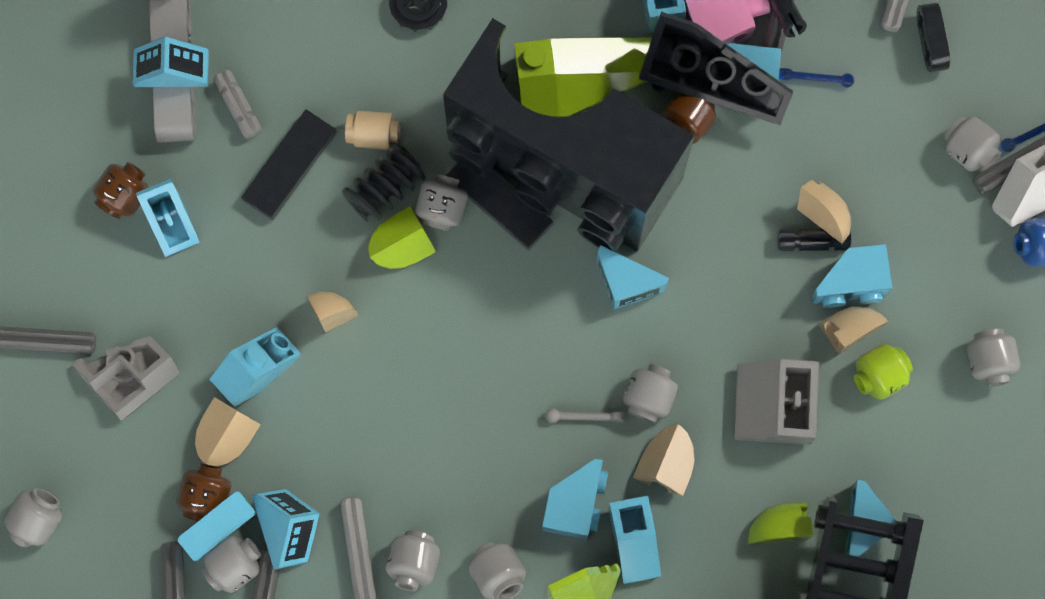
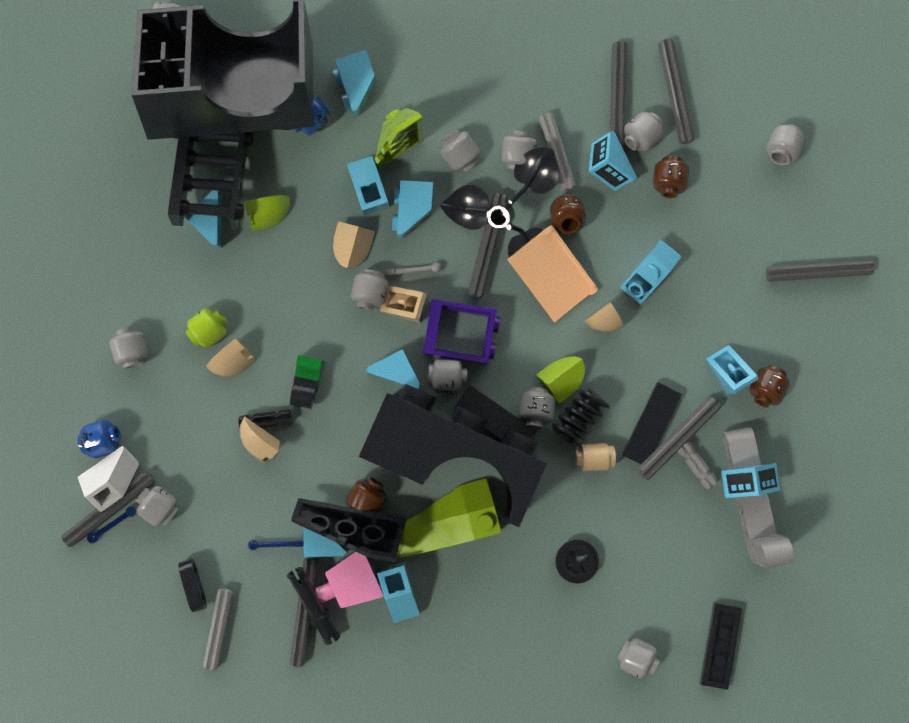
camera: 165 degrees right, 10 degrees up
(128, 374) = (739, 255): light grey slope -> none
(216, 526) = (657, 153): medium azure slope -> none
(223, 434) = (665, 221): tan brick -> none
(255, 139) = (679, 438): none -> dark grey axle
(358, 458) = (567, 214): none -> reddish brown head
(392, 381) = (552, 273): none -> light nougat piece
(421, 419) = (469, 203): none -> black plant
(476, 436) = (485, 252): none -> dark grey axle
(495, 292) = (433, 325): none -> dark purple window
(558, 261) = (447, 375): none -> light grey head
(602, 367) = (404, 303): none -> tan slope
(752, 282) = (306, 381): none -> leg
(777, 401) = (279, 294): light grey slope -> none
(857, 275) = (232, 396): medium azure slope -> none

